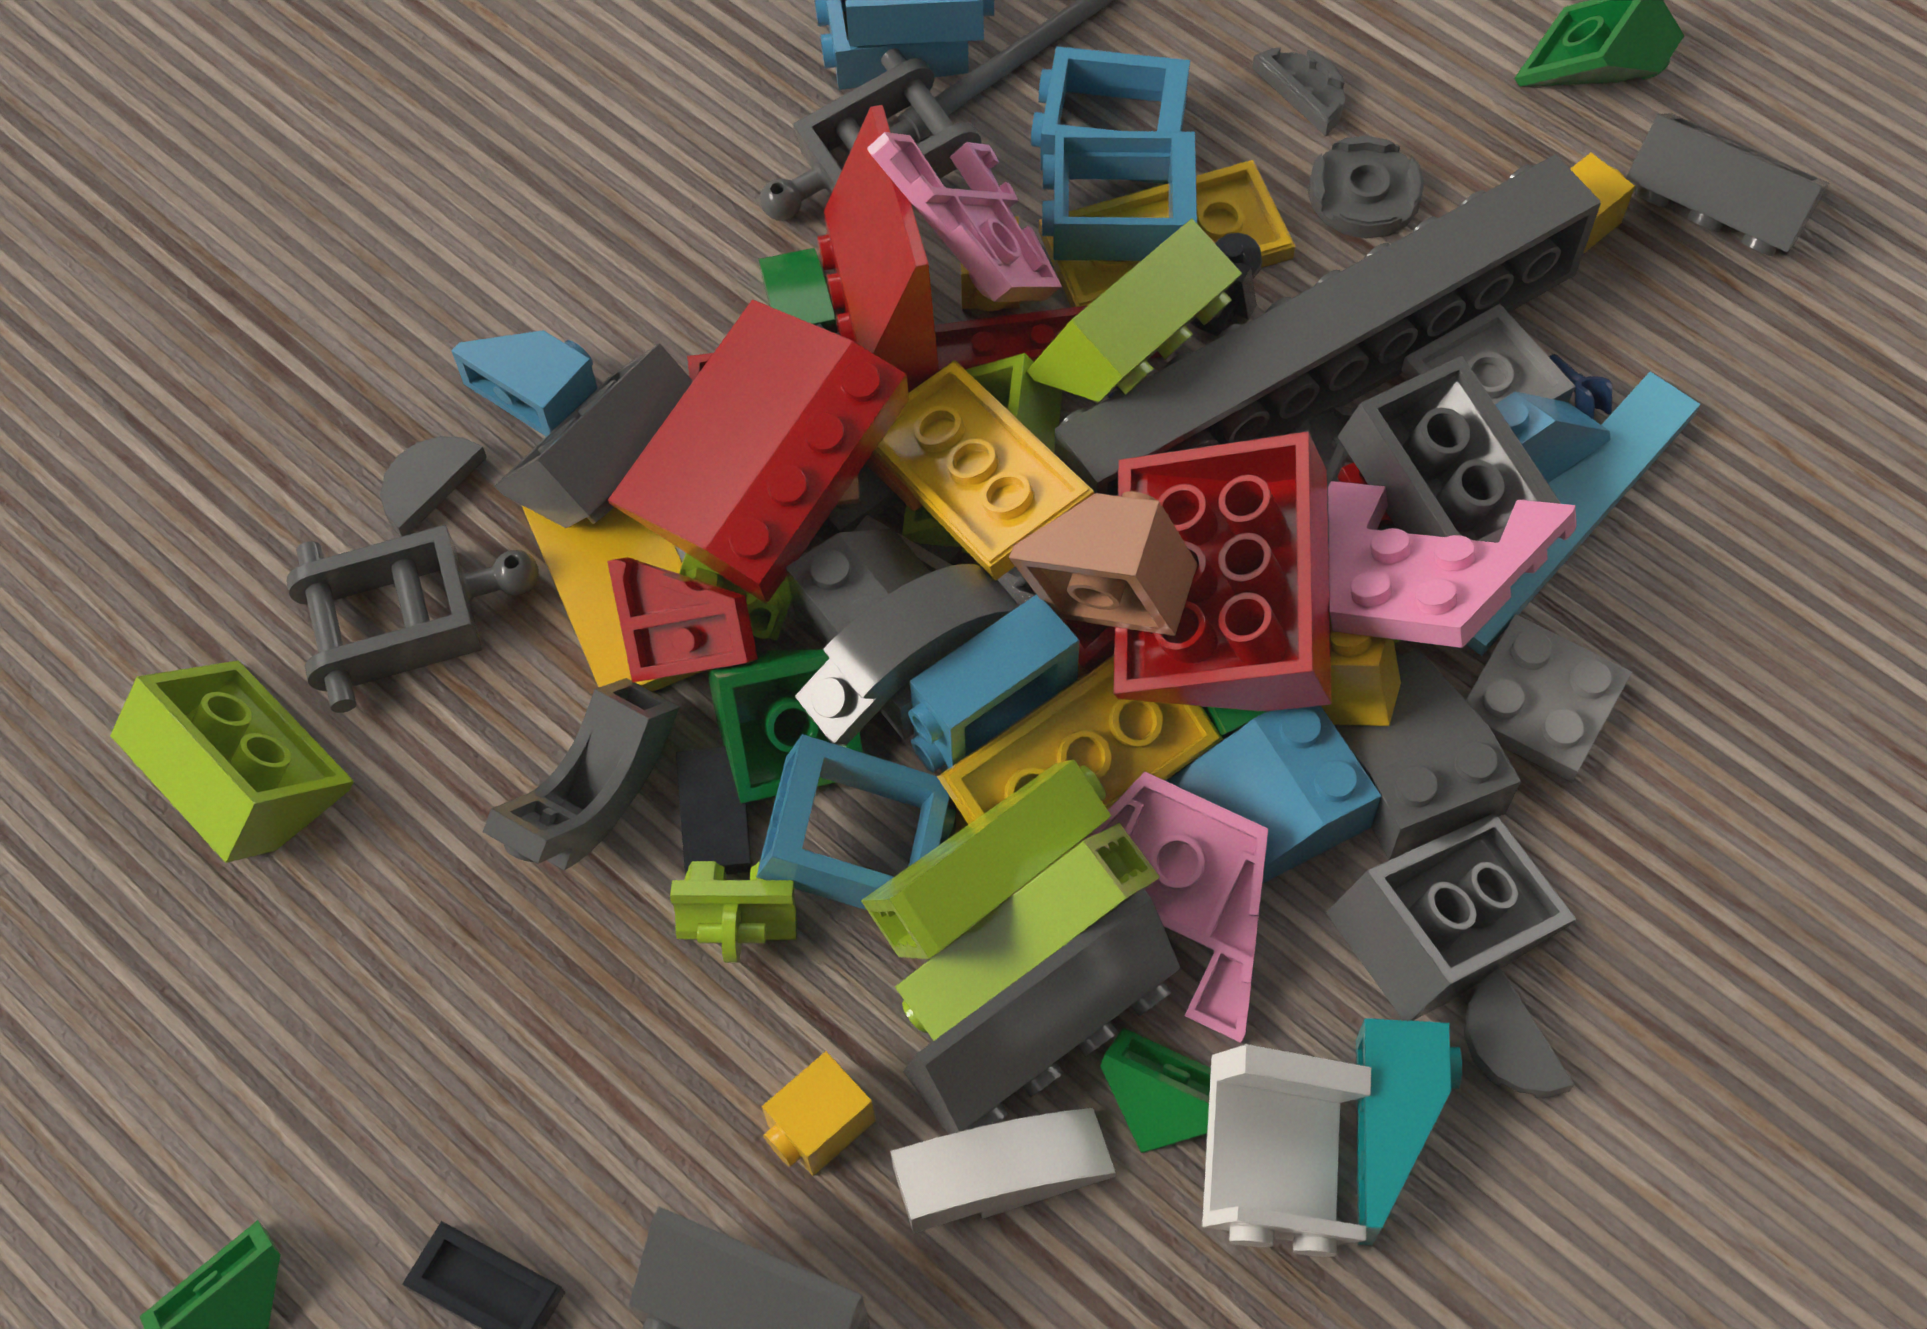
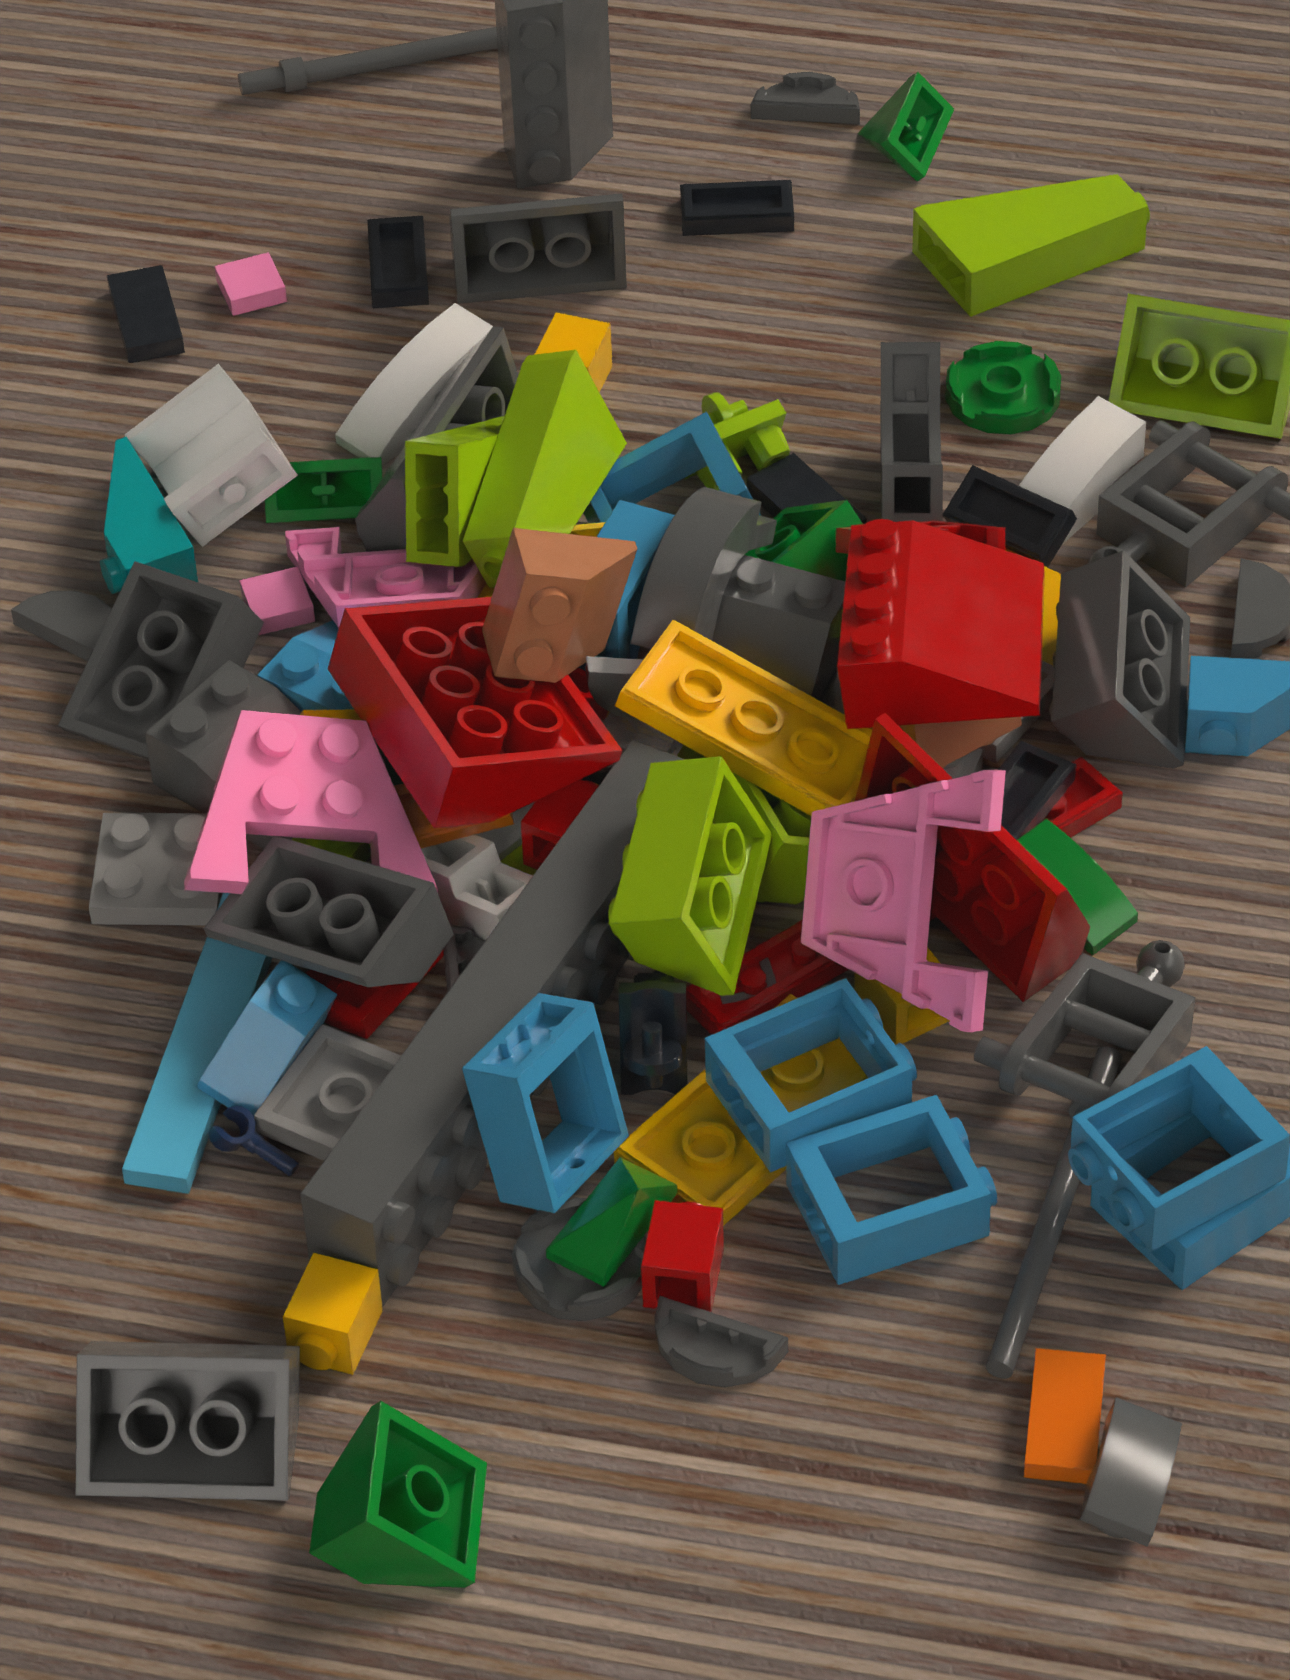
camera: 150 degrees right, 15 degrees down
(254, 1026) = (1027, 238): none -> lime slope
(424, 861) = (1003, 388): none -> green tile
(472, 681) = (1088, 459): none -> white slope
(554, 662) = (1031, 522): none -> black tile
(1290, 963) = (278, 599): none -> bright pink tile
(1296, 132) = (683, 1254): none -> red brick
(1331, 173) = (610, 1222): none -> green slope
(1336, 233) = (543, 1040): none -> dark azure window

